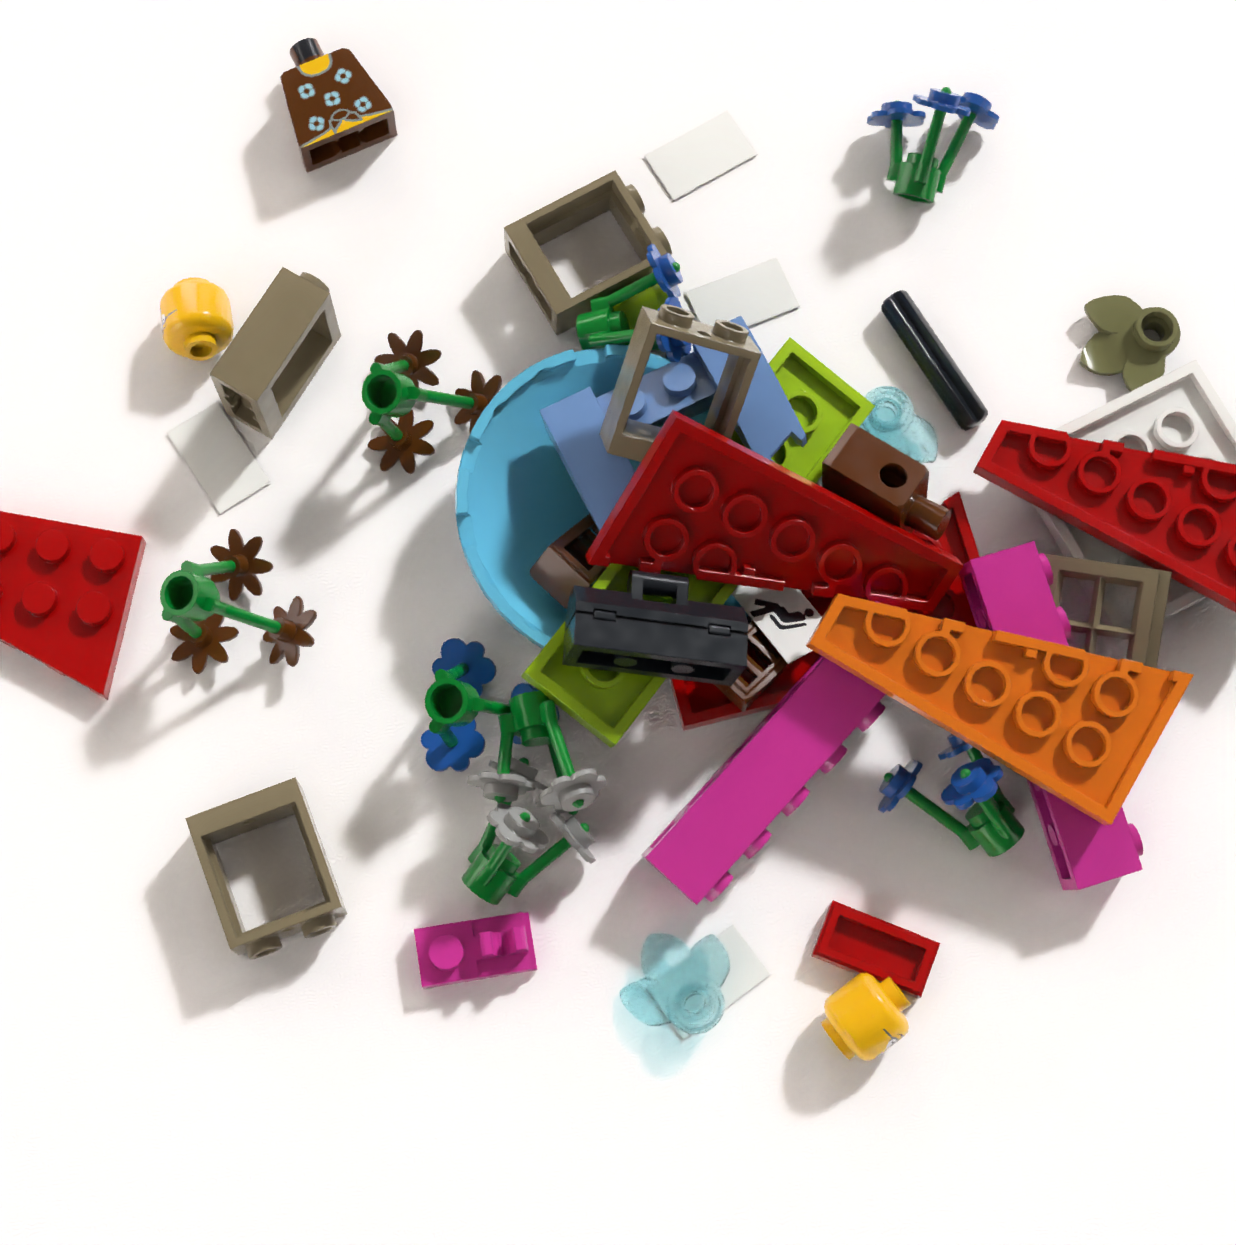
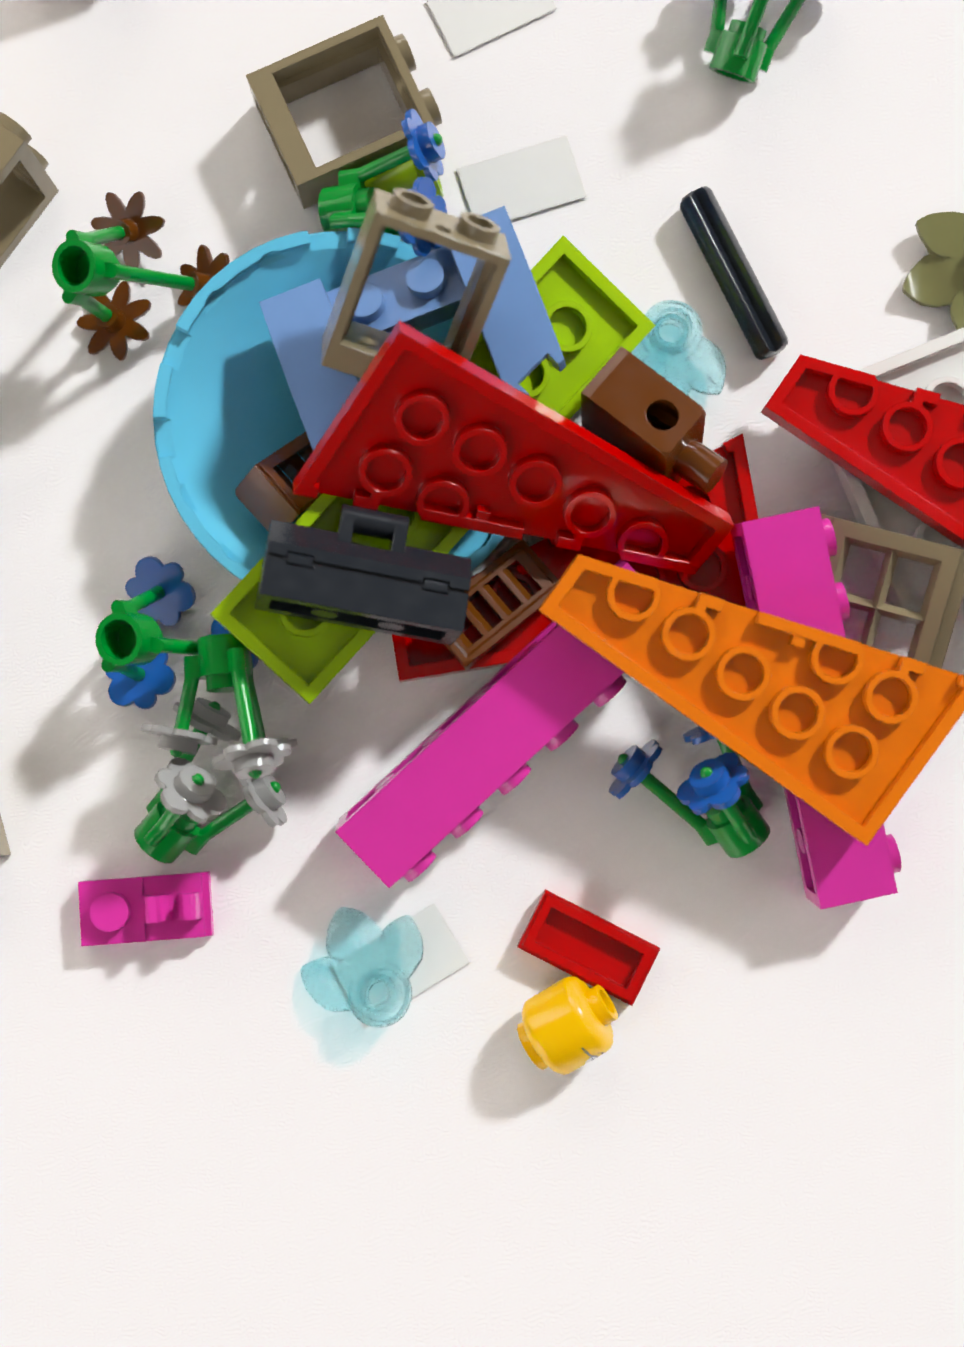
camera: 10 degrees right, 10 degrees up
(782, 617) = (520, 569): white sticker -> none

